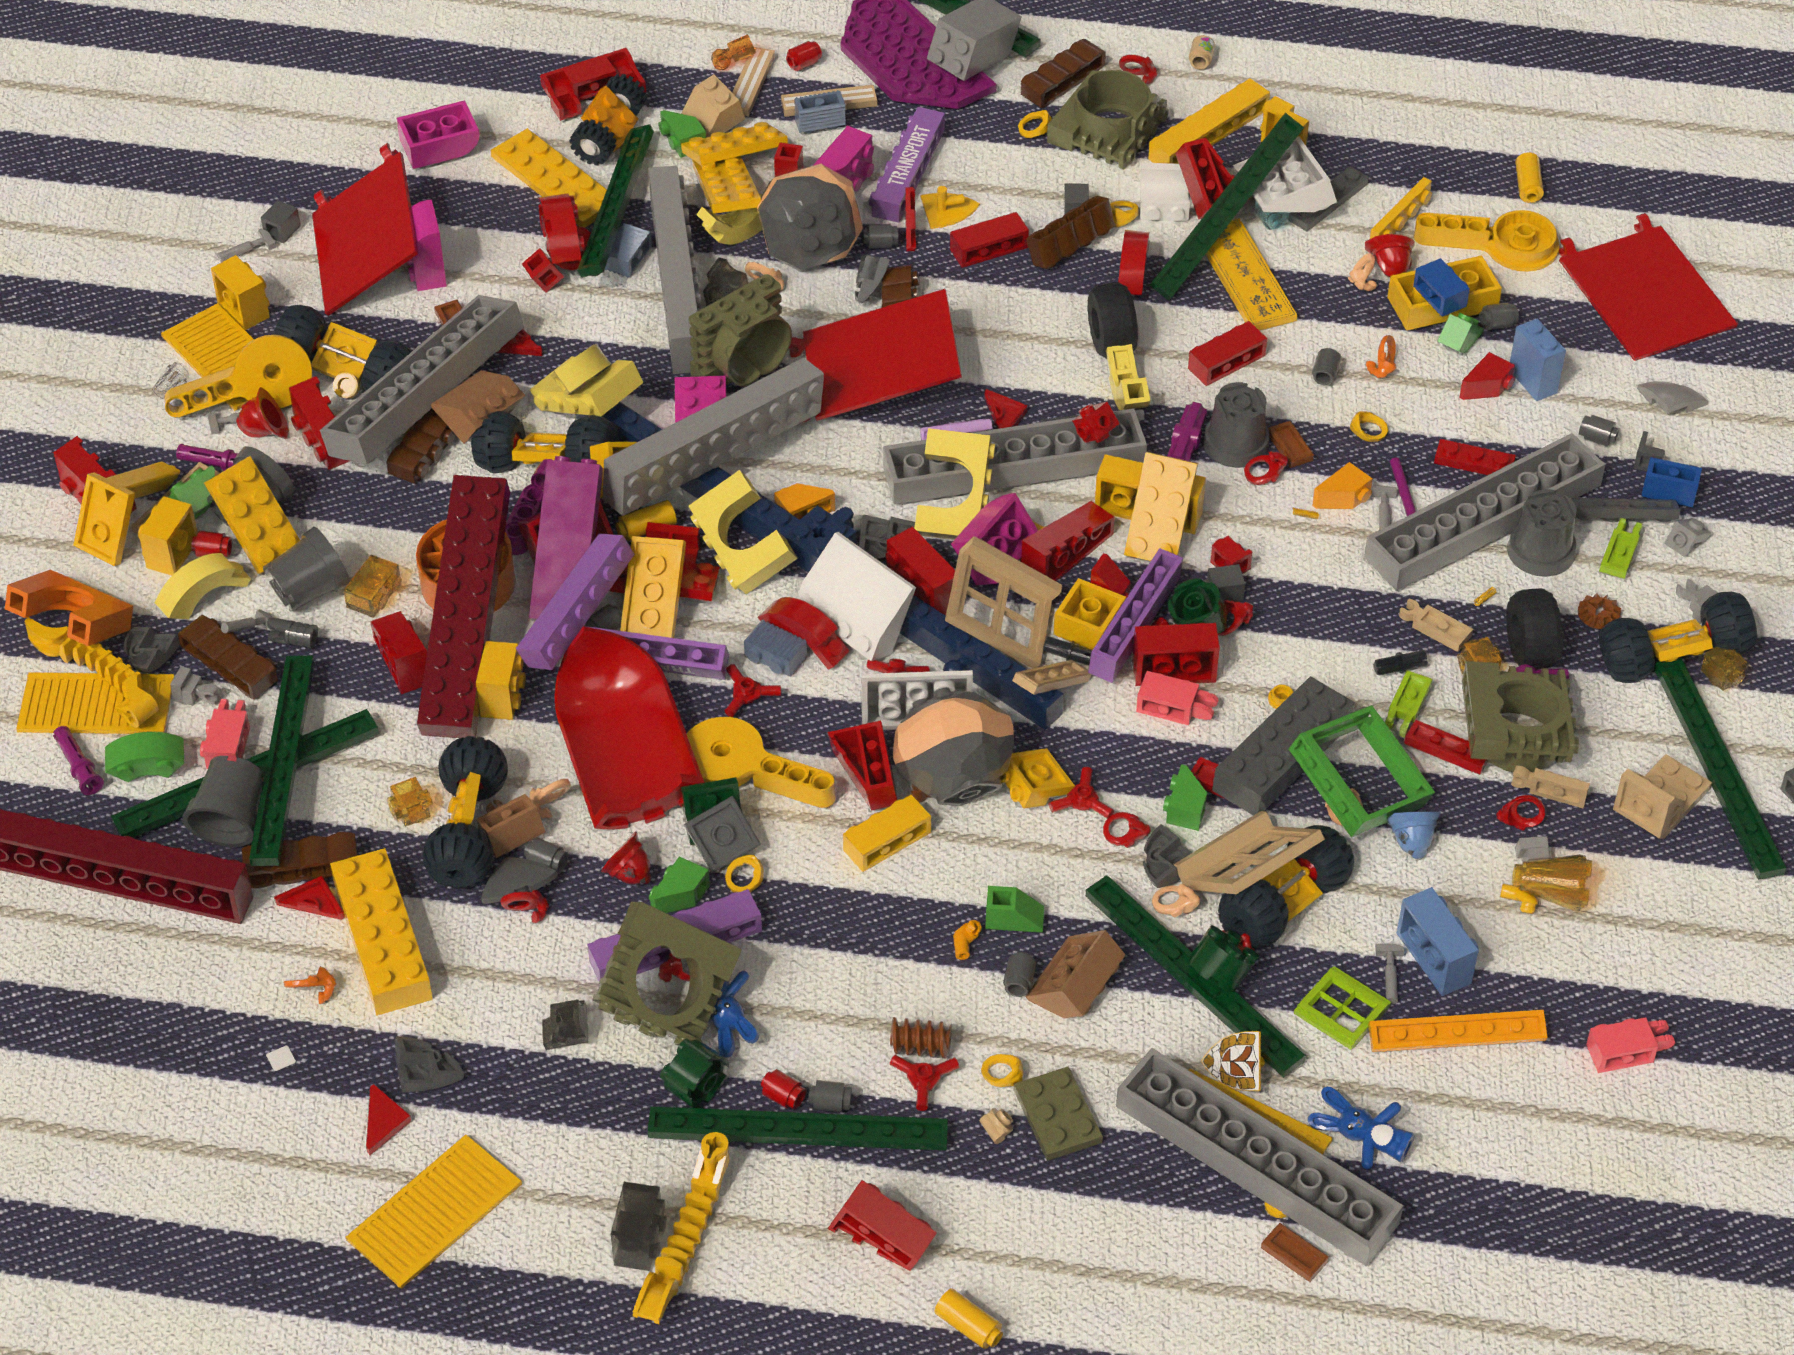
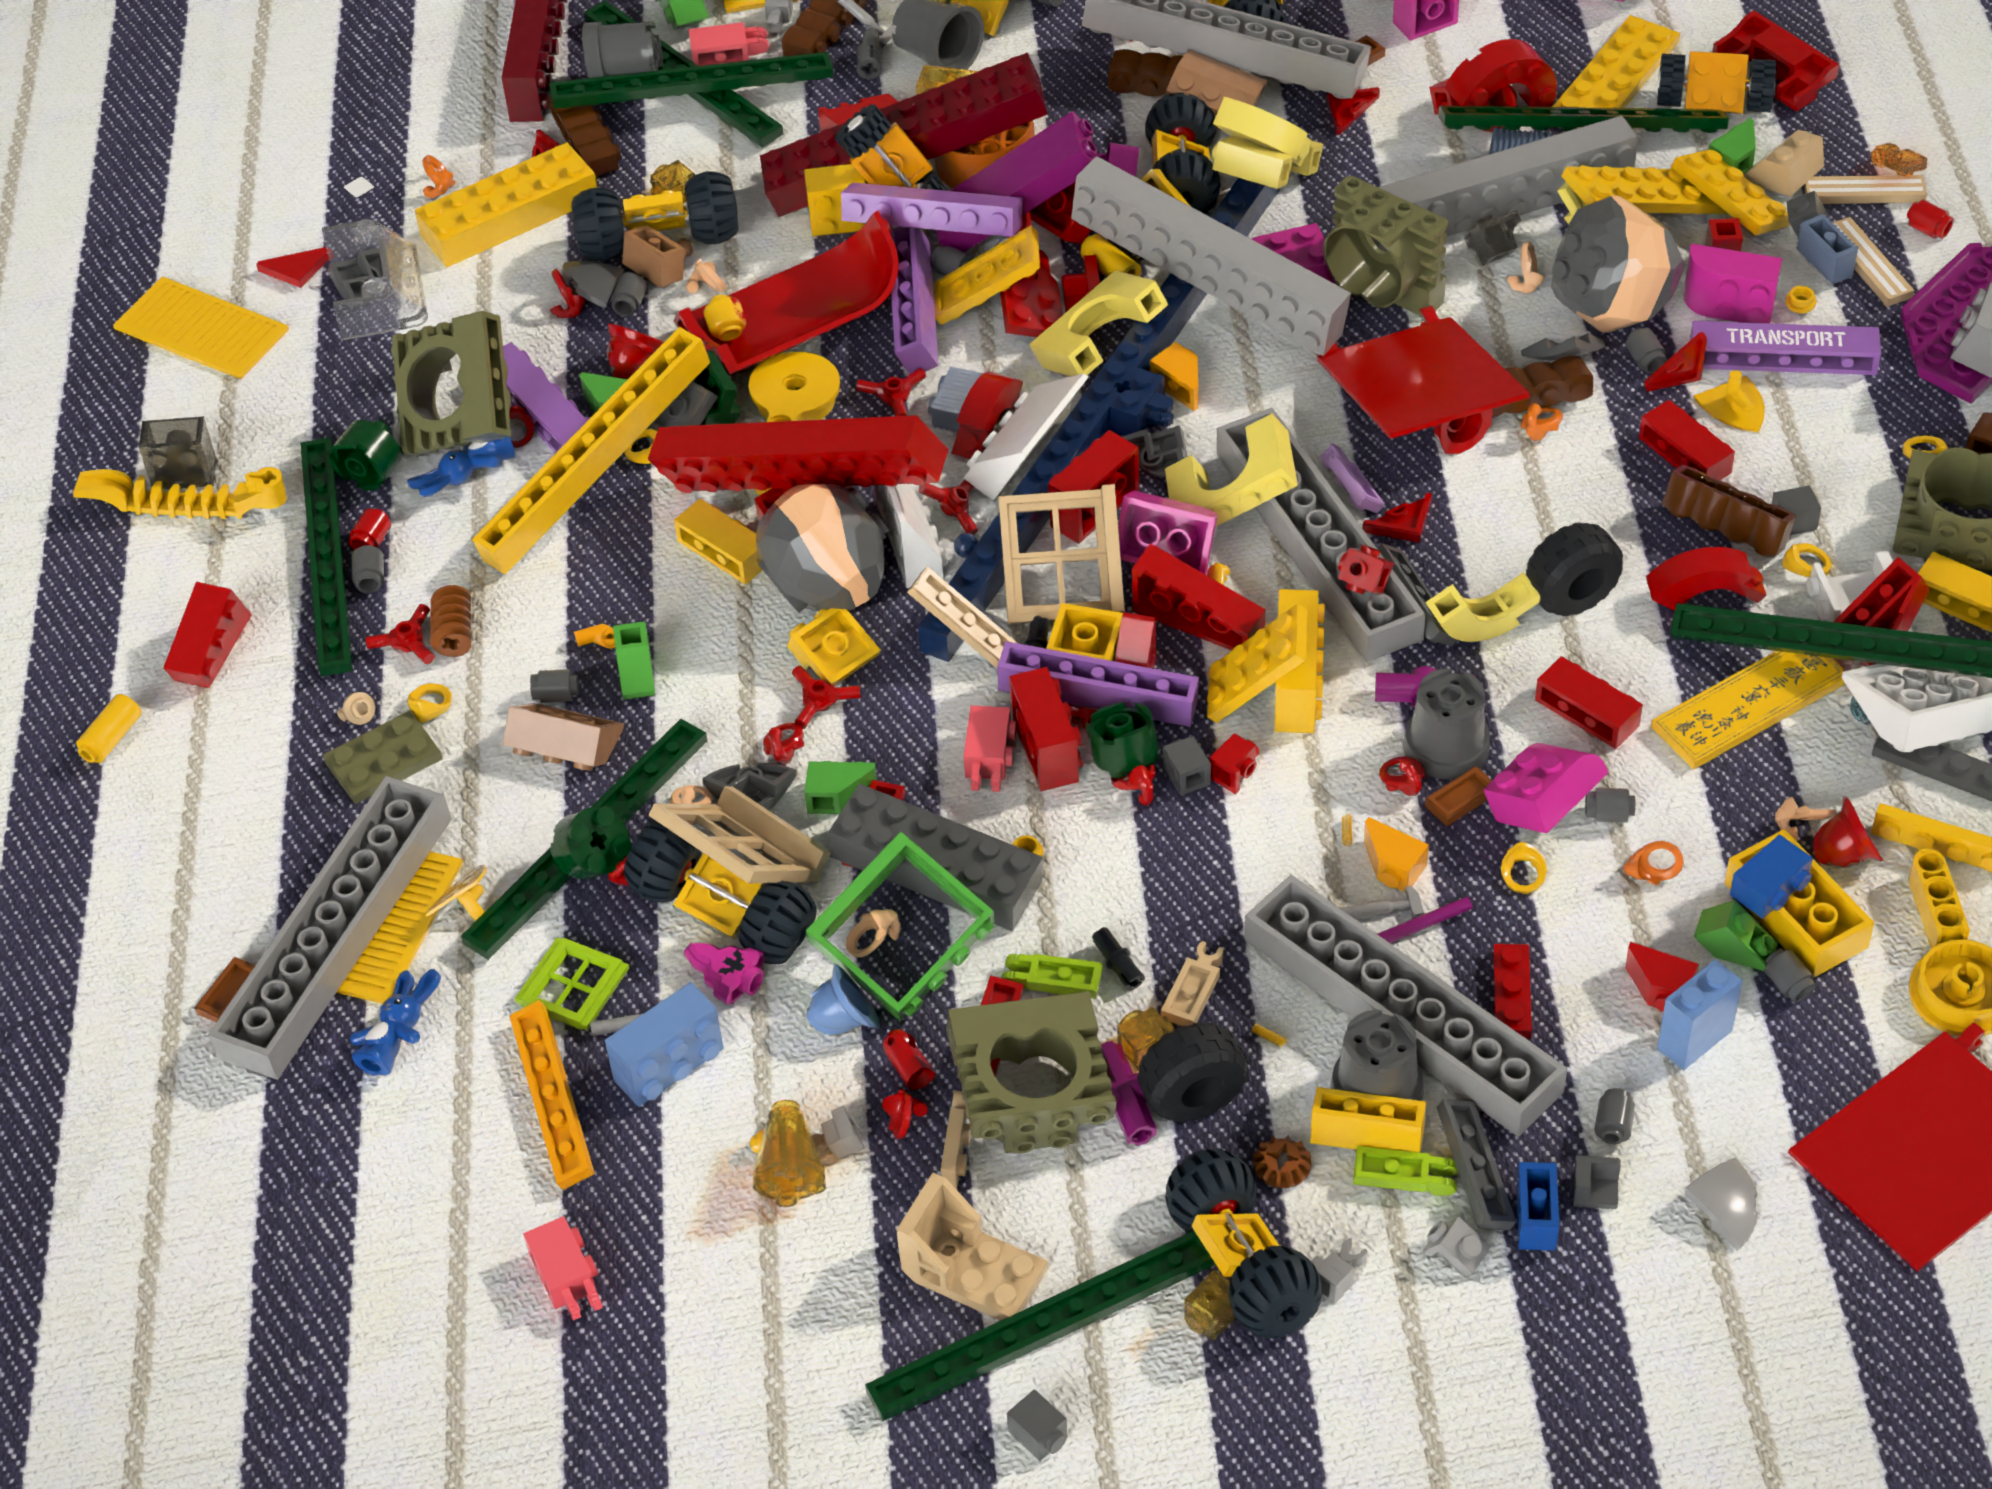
camera: 80 degrees right, 0 degrees up
(444, 1030) = (387, 301): none -> clear windscreen
(500, 613) = (885, 152): none -> plate
(617, 784) = (724, 317): none -> yellow head
(772, 892) = (591, 451): none -> yellow brick
(780, 112) = (1804, 208): none -> dark grey brick
(865, 730) = (799, 453): none -> red brick
(1309, 390) = (1543, 786): none -> dark pink brick
(1357, 899) = (727, 969): none -> dark pink rock
(1469, 803) = (908, 1059): none -> red piece
(1586, 551) = (1366, 1120): none -> yellow brick

